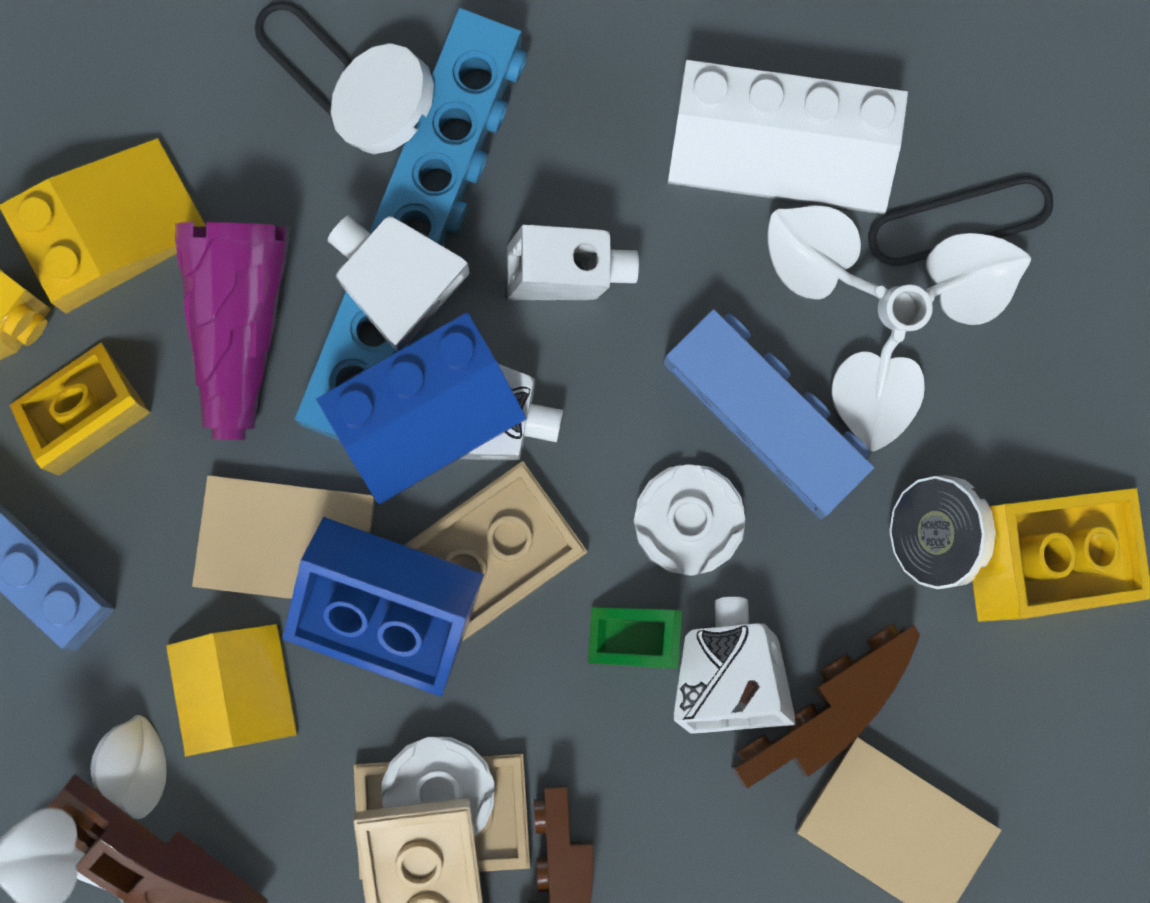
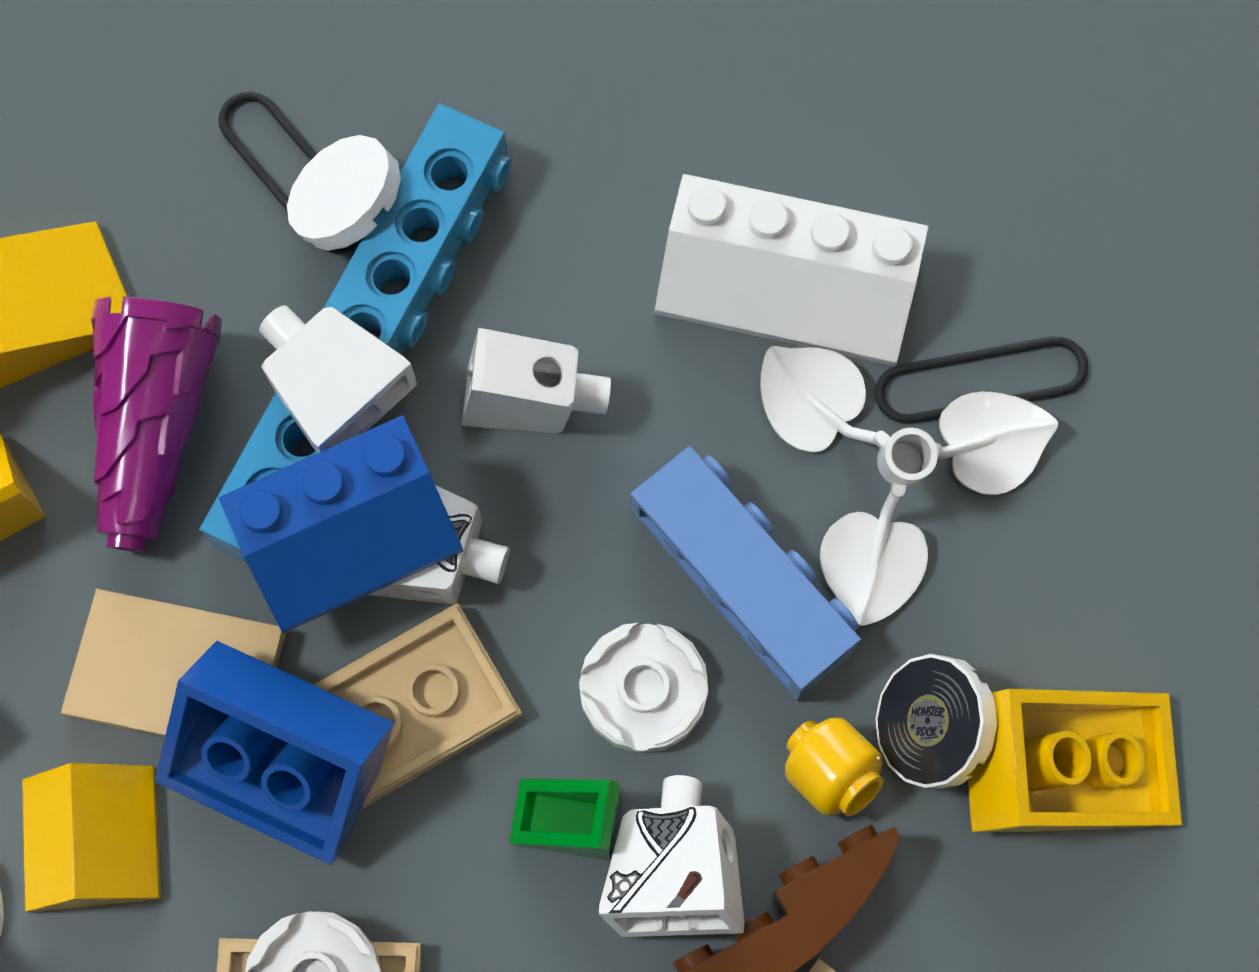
camera: 10 degrees right, 10 degrees down
(858, 576) = (833, 767): none -> yellow head

